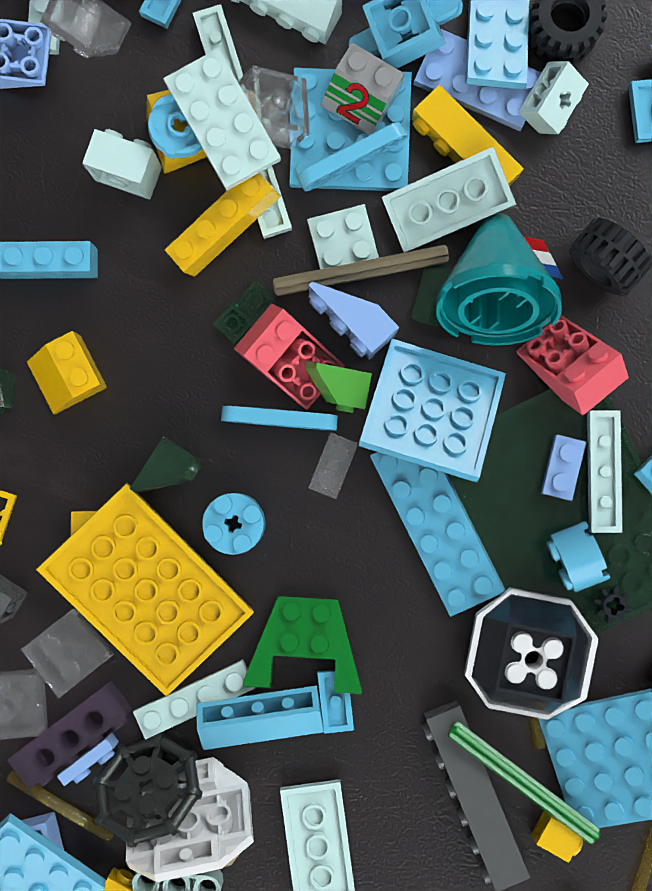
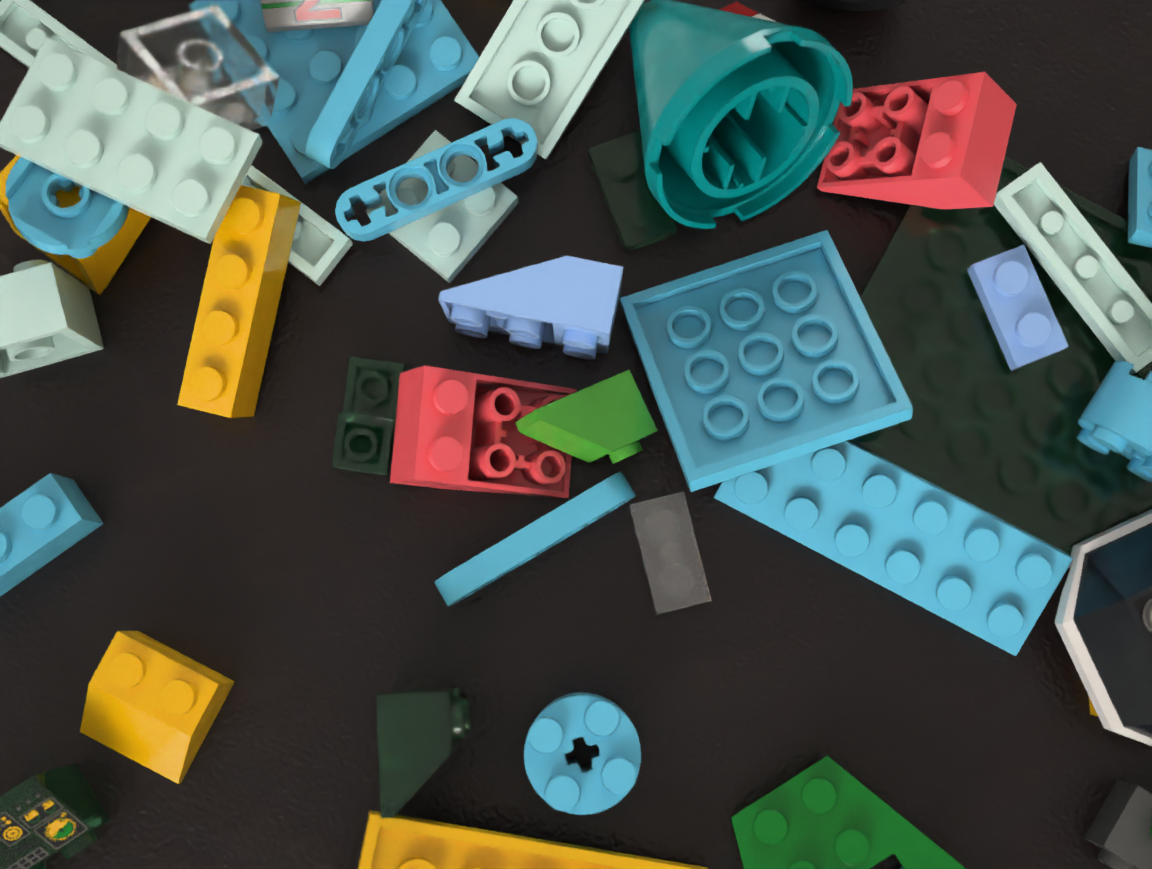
camera: 35 degrees left, 5 degrees down
(349, 223) = (433, 171): none -> medium azure beam
(362, 270) = (501, 227): dark tan axle -> none

